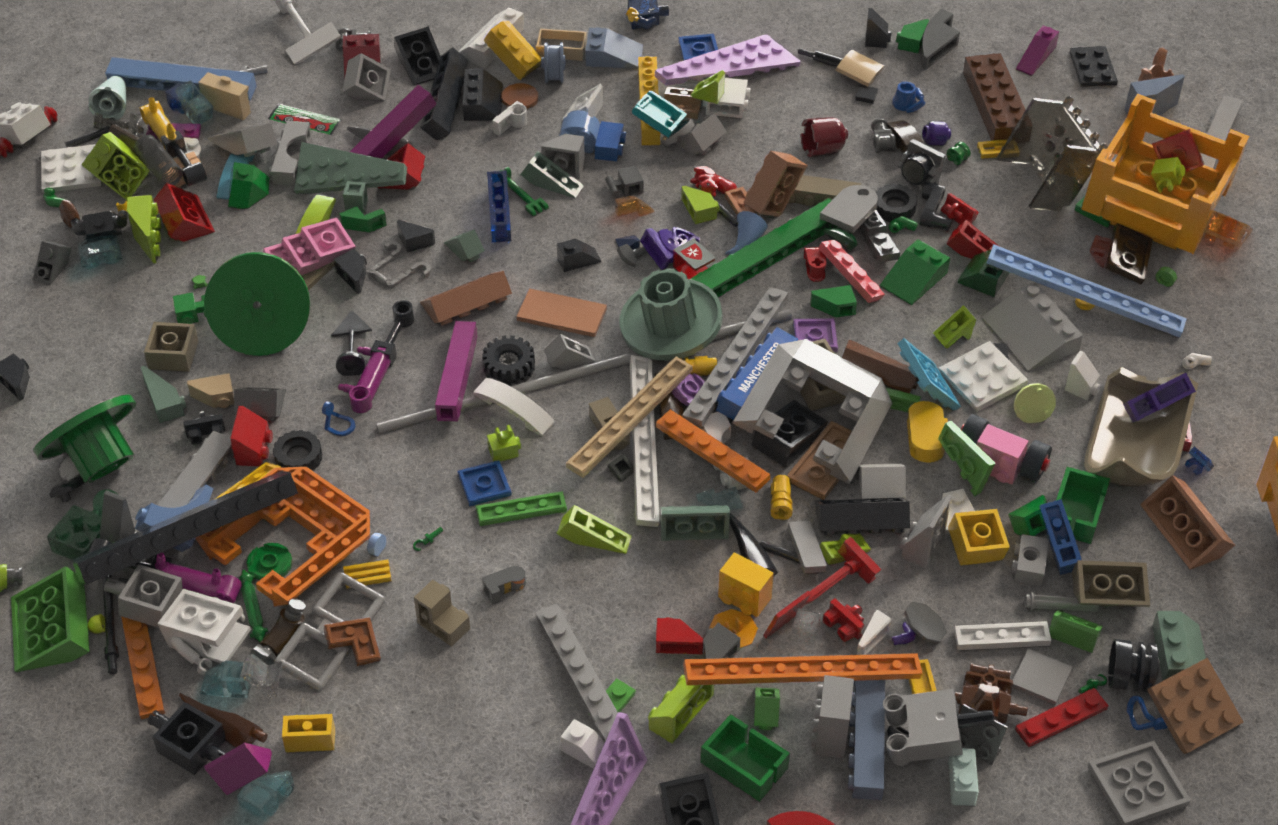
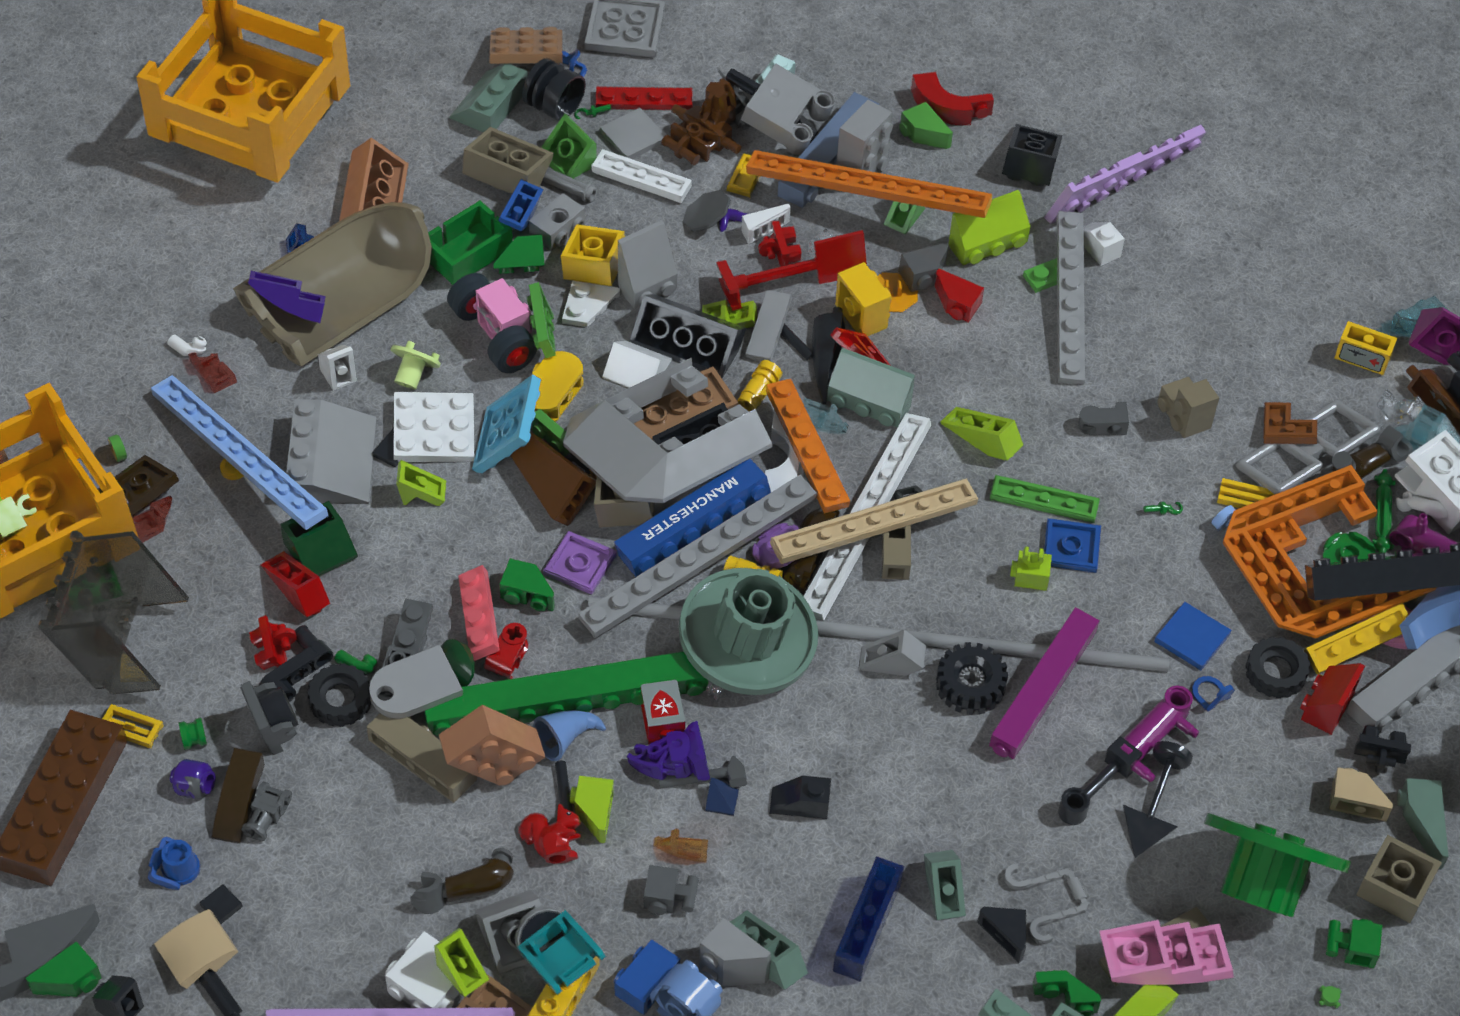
camera: 155 degrees left, 5 degrees up
(261, 401) = (1302, 758): dark grey slope -> none
(352, 269) = (1113, 906): black slope -> none
(367, 455) = (1192, 636): none -> blue tile
(467, 297) = (981, 800): nougat slope -> none
(515, 403) = (1000, 613): white slope -> none
(531, 203) = (827, 986): green hinge -> none
(561, 312) = (867, 729): nougat tile -> none
(717, 551) = (858, 343): none -> red wing
(732, 147) = (478, 881): none -> piece
(736, 198) = (536, 788): nougat plate -> none
(747, 766) = (961, 163): green piece -> none
(800, 793) = (925, 127): none -> bright green slope
(823, 136) = (352, 831): dark red cylinder -> none
(916, 272) = (392, 577): green slope -> none
(1162, 354) = (215, 373): none -> clear red slope

